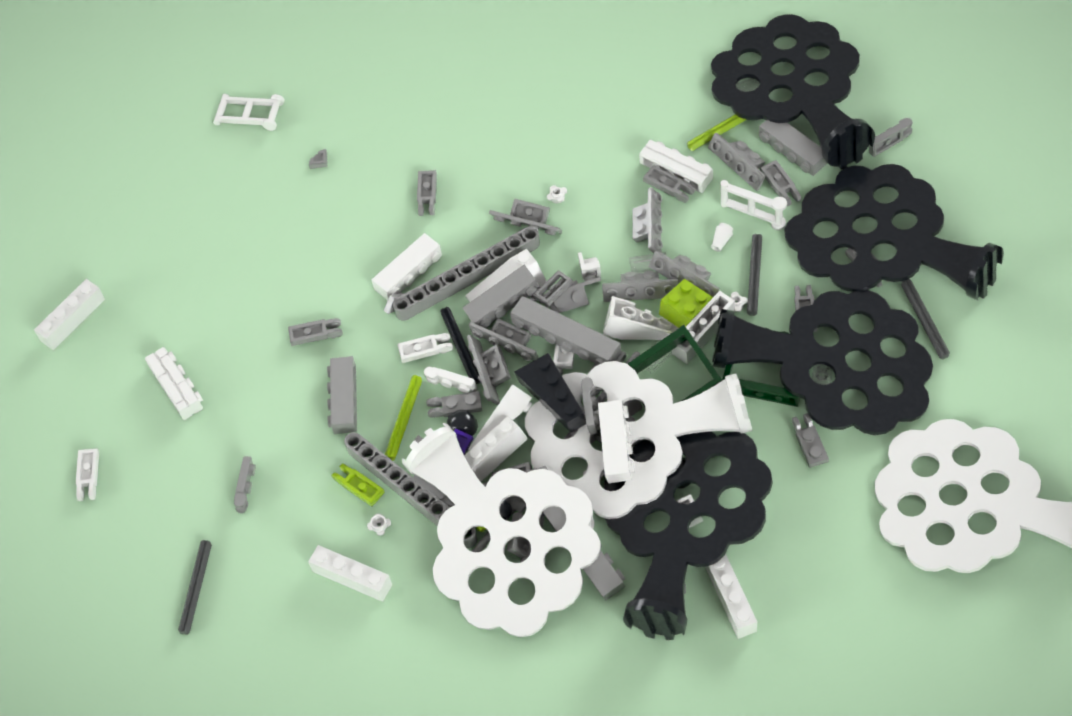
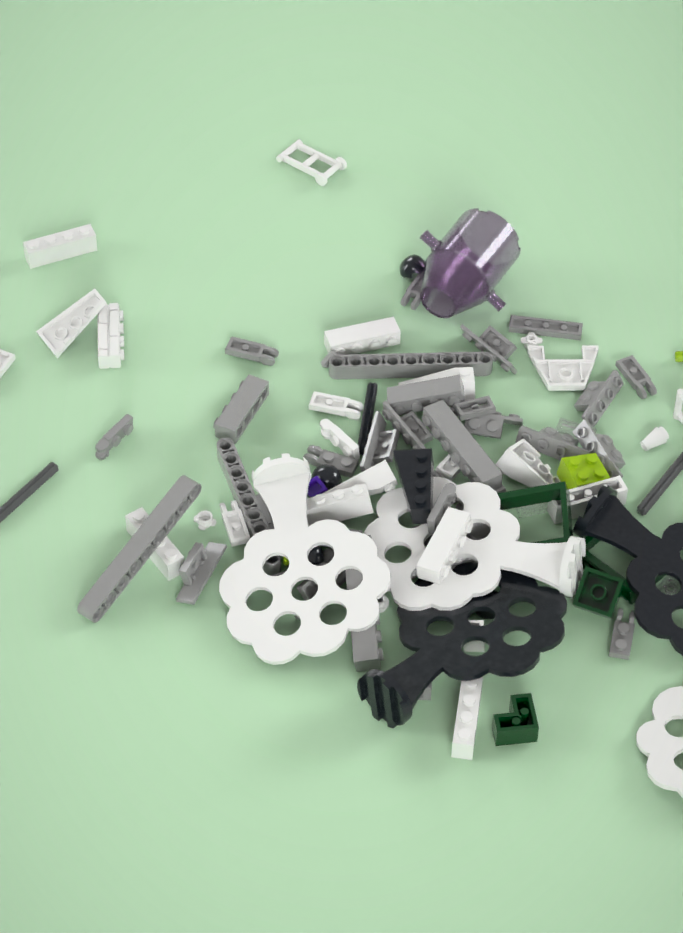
camera: 20 degrees right, 10 degrees down
(130, 392) = (70, 323): none -> white wing
(319, 160) = (345, 225): light grey tile -> none
(344, 590) = (139, 549): none -> light grey beam
(359, 485) = (209, 482): lime hinge -> none
(403, 417) = (285, 446): lime axle -> none
(406, 578) = (198, 569): none -> light grey bracket
(408, 172) = (412, 264): none -> black hair
(409, 514) = (234, 524): none -> white hinge
(462, 149) = (468, 263): none -> clear purple piece
(560, 174) = (545, 327): none -> light grey tile
(589, 266) = (519, 408): white panel -> none
(605, 212) = (564, 373): none -> white wing
(672, 161) = (654, 364): white brick -> none
(741, 301) = (634, 496): white plate -> none
(770, 414) = (598, 592): none -> dark green brick
(781, 576) = (518, 725): none -> dark green brick

